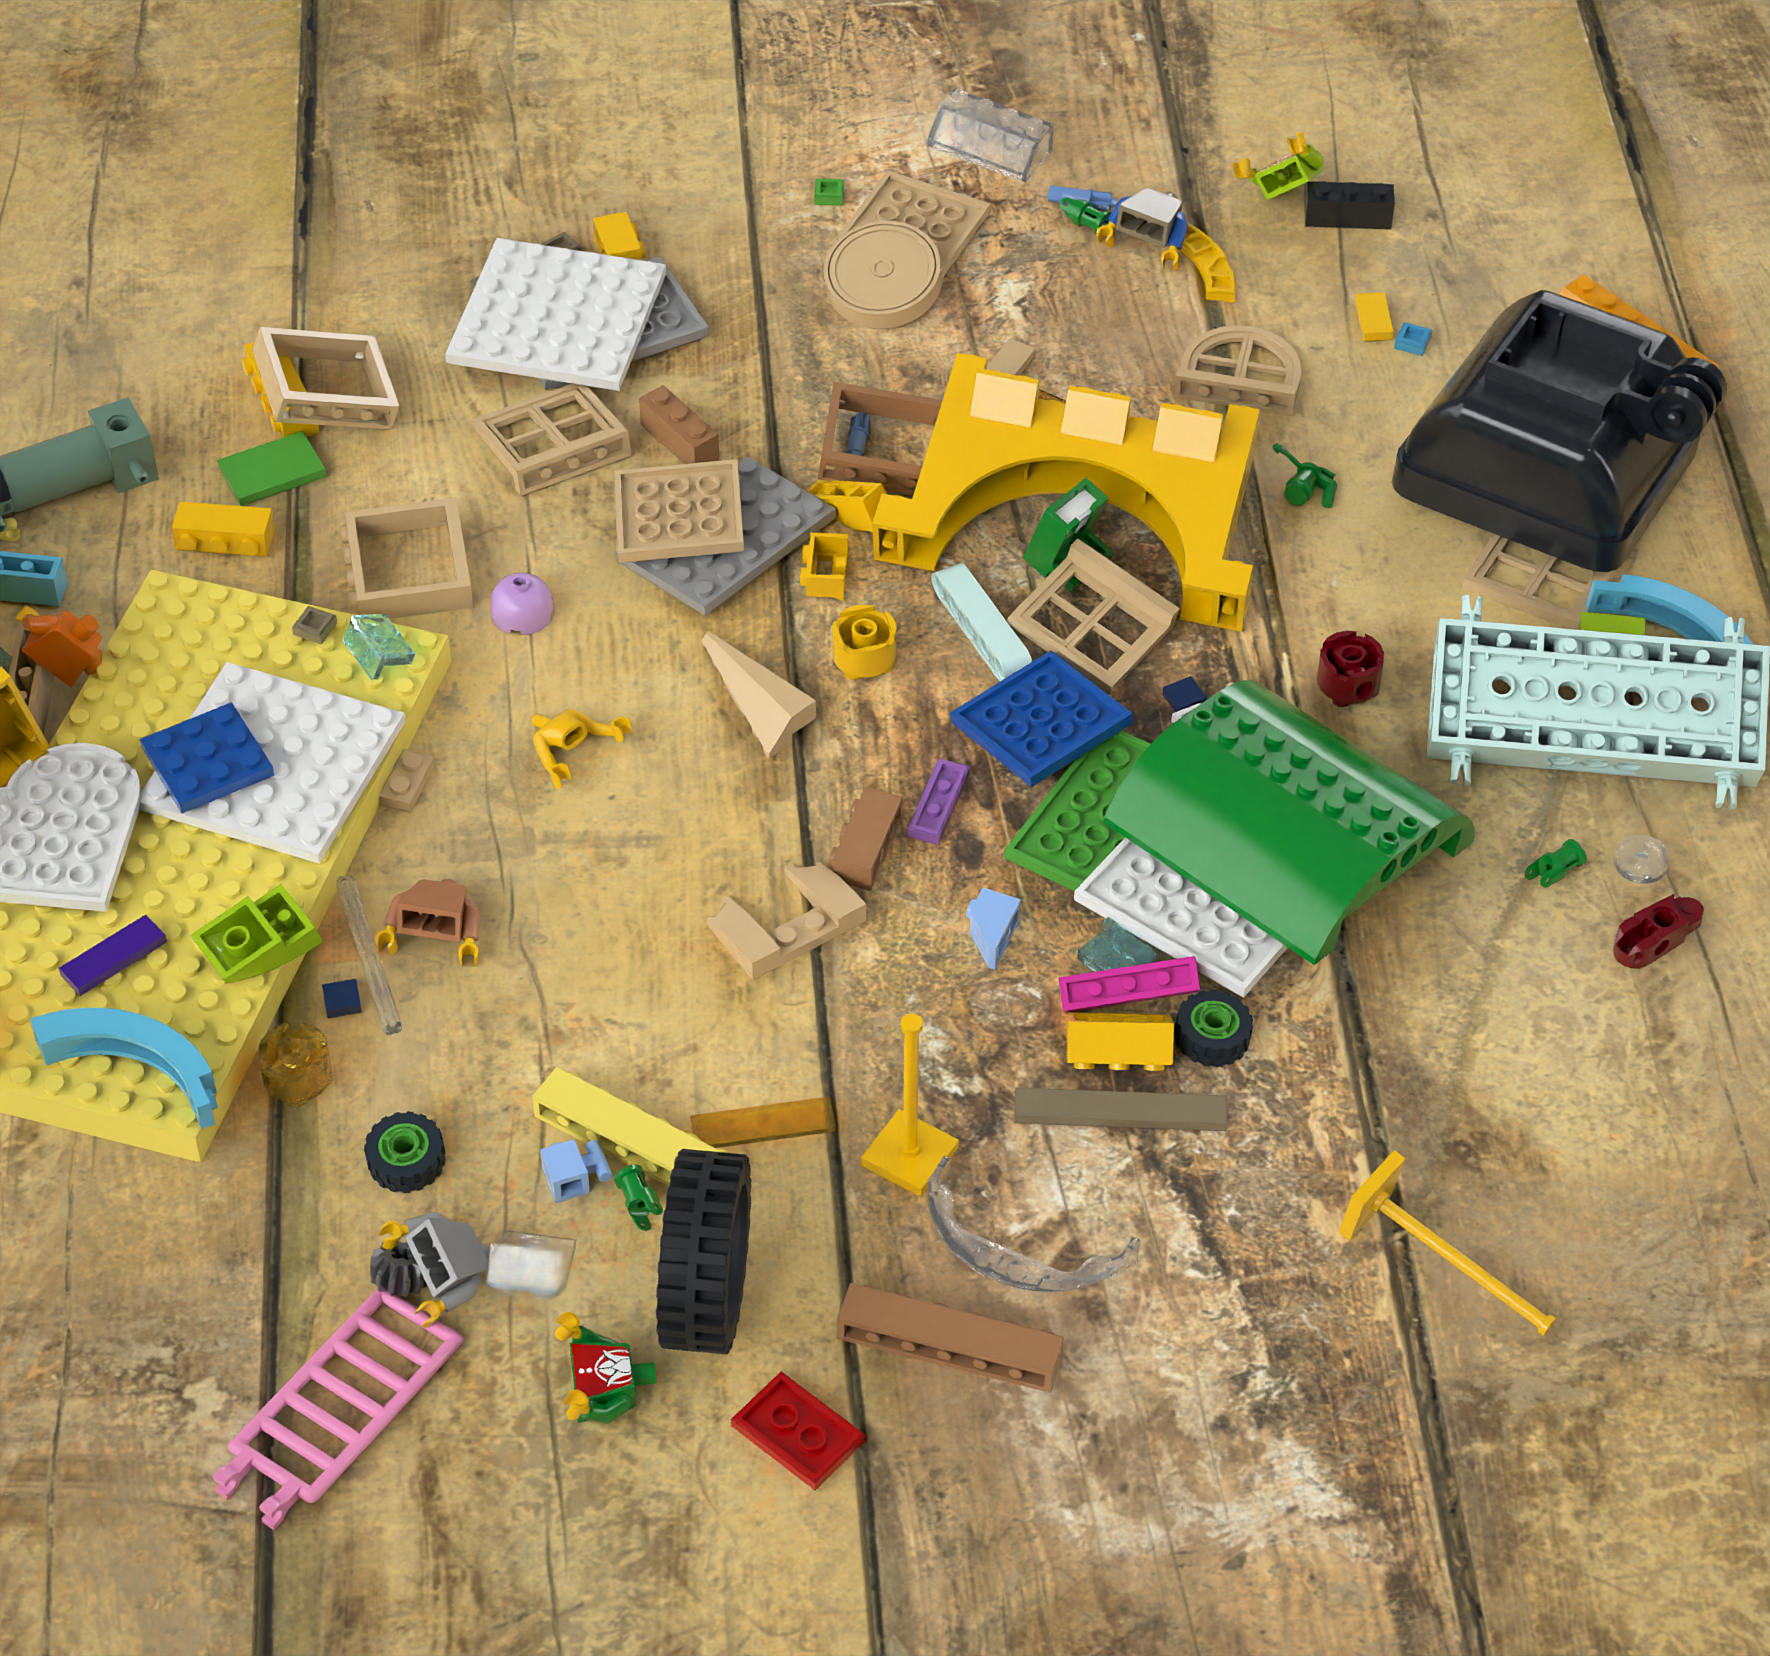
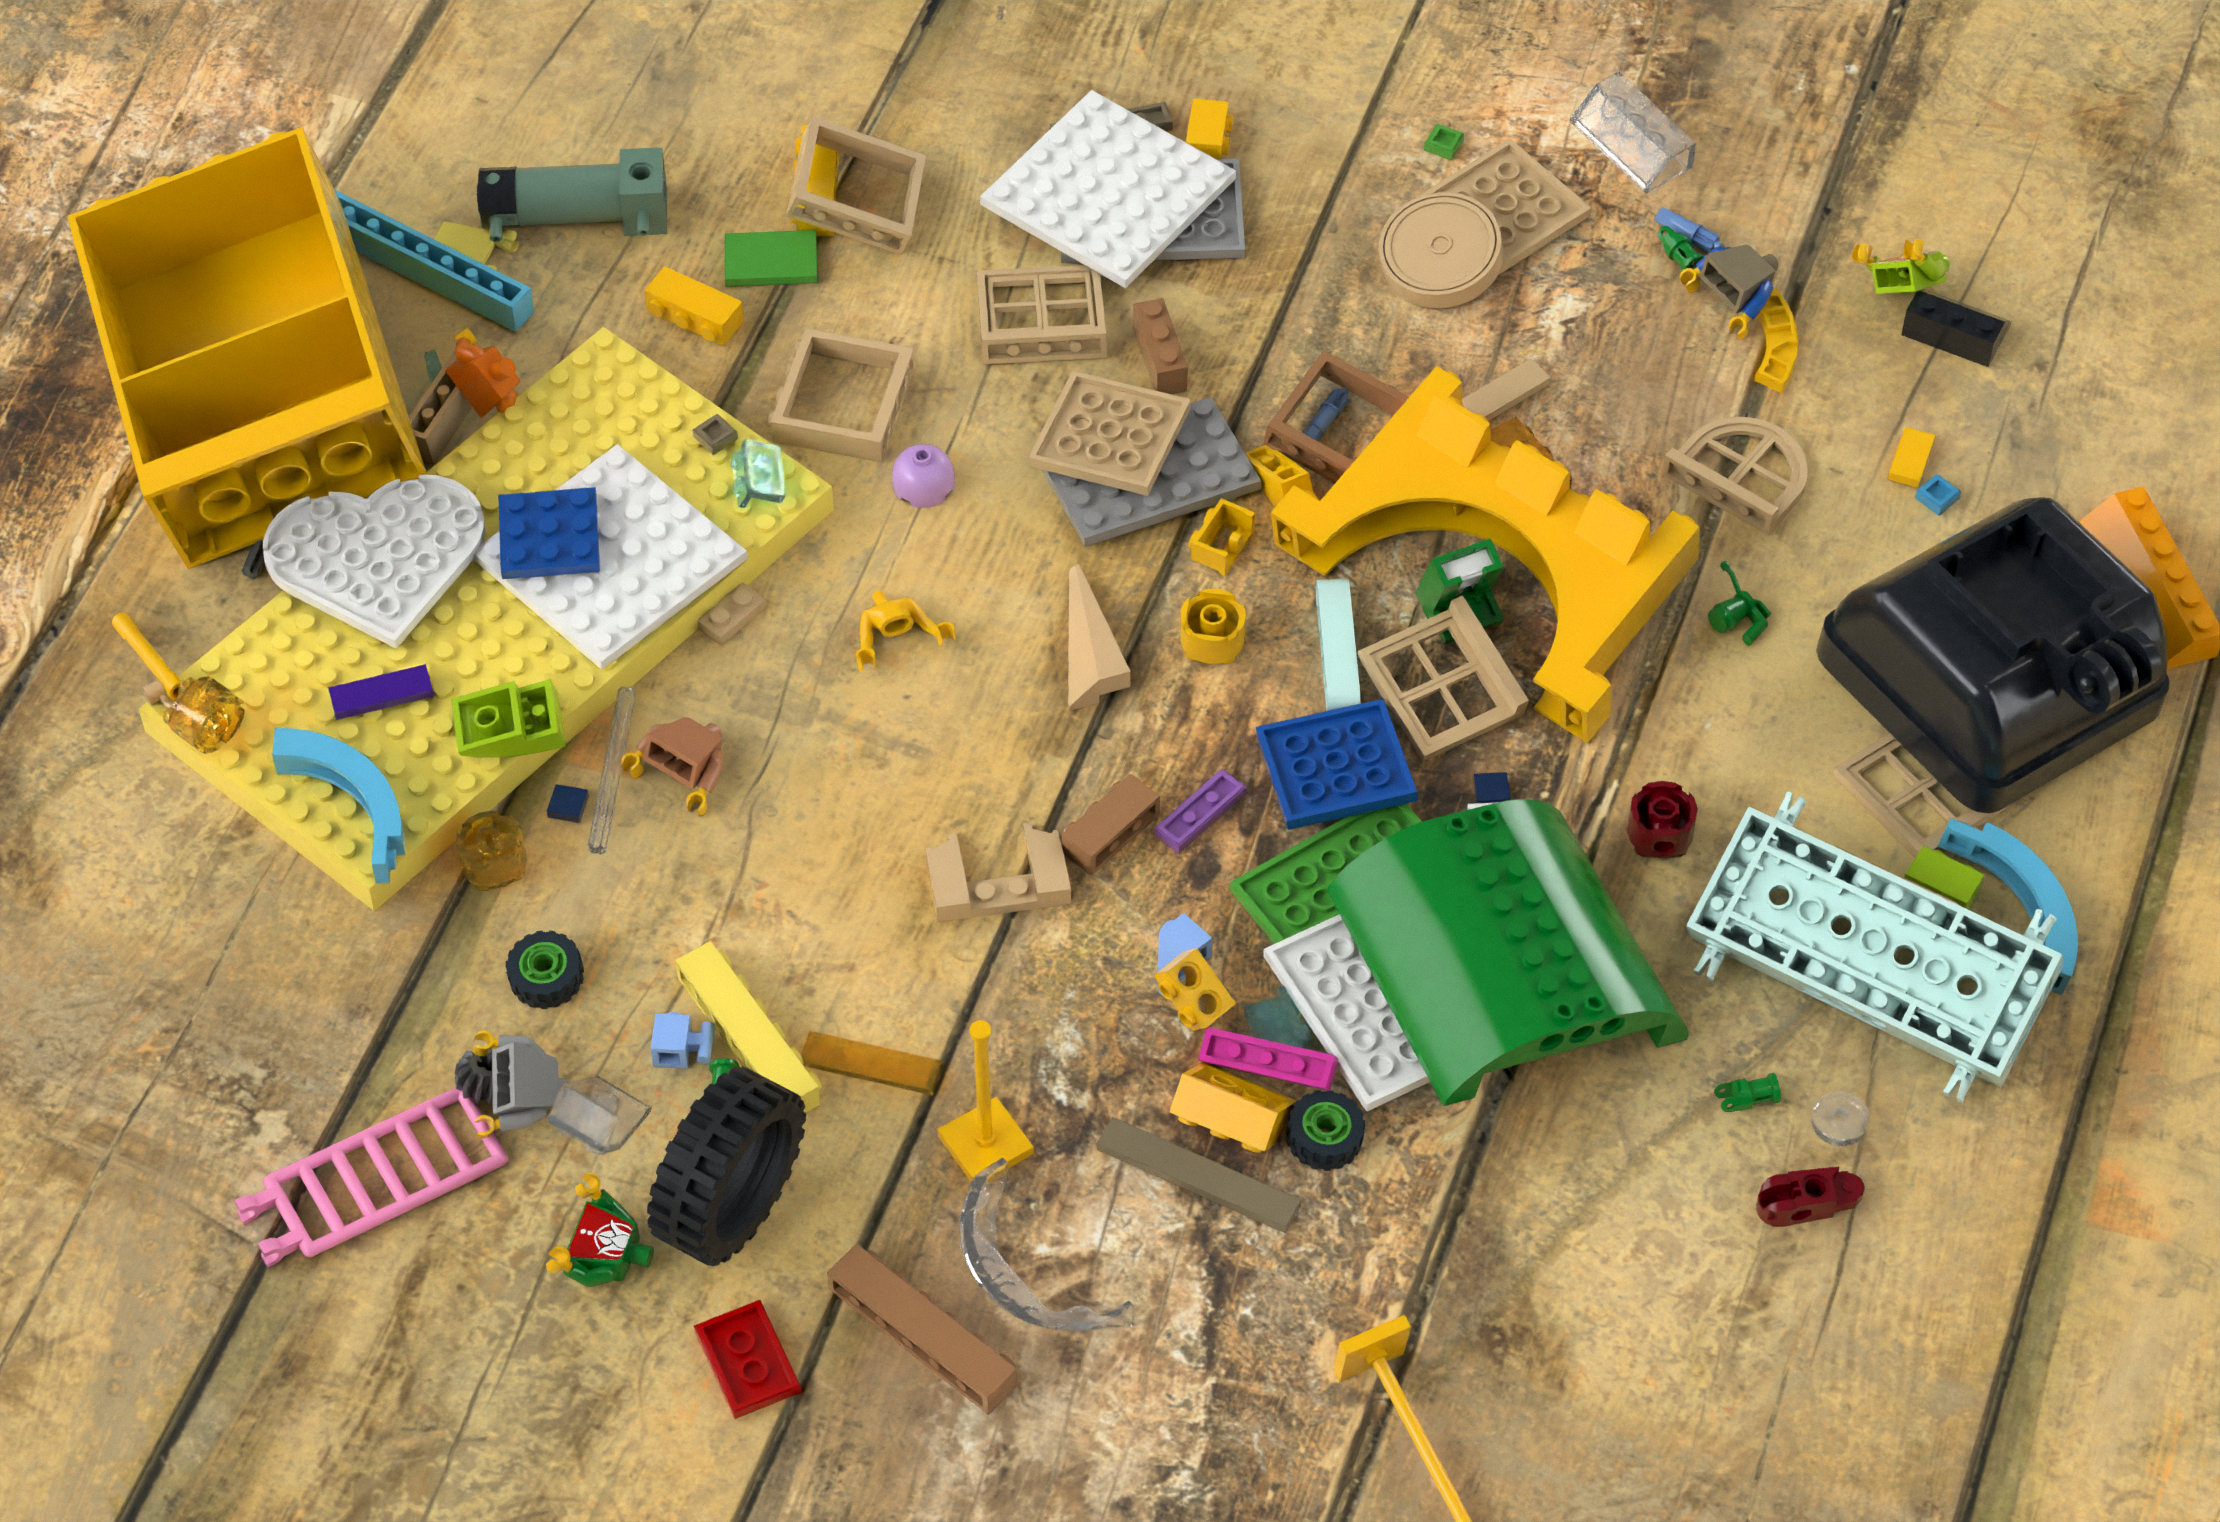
camera: 25 degrees right, 5 degrees up
(1030, 948) = (1200, 983): none -> yellow brick

